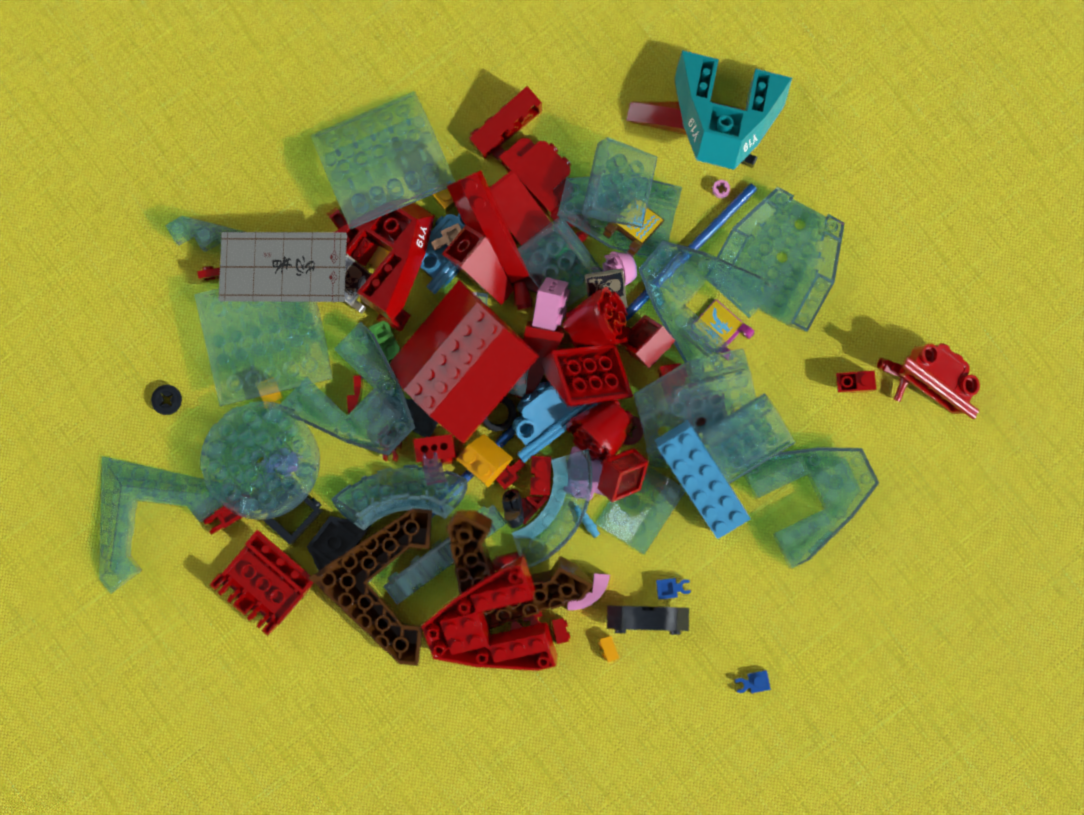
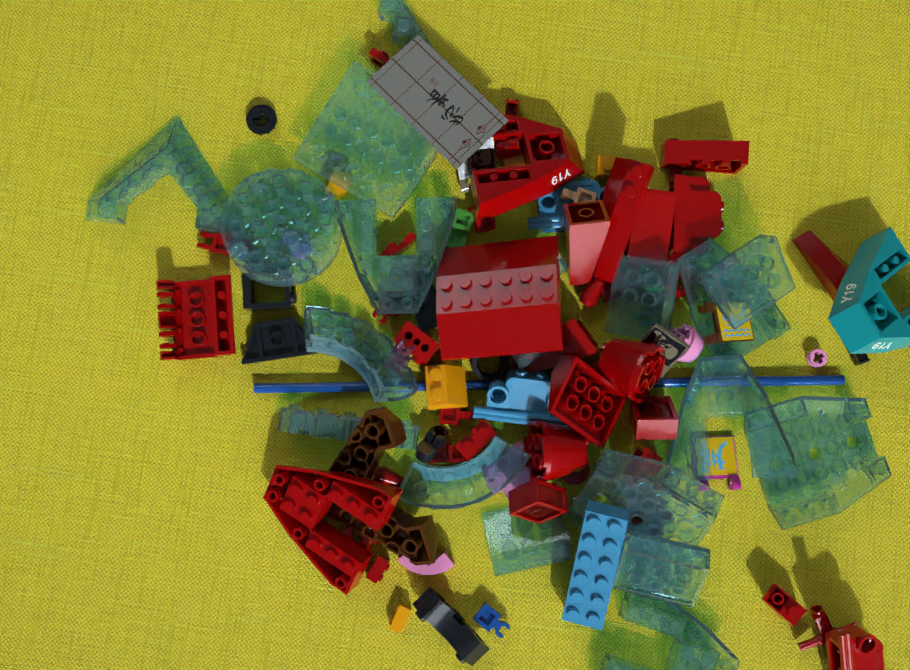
camera: 40 degrees right, 0 degrees up
(349, 587) = (254, 383): reddish brown wedge -> none
(382, 160) = (586, 96): clear light blue slope -> none
(550, 304) = (608, 320): bright pink piece -> none
(590, 526) = (475, 513): medium azure animal -> none

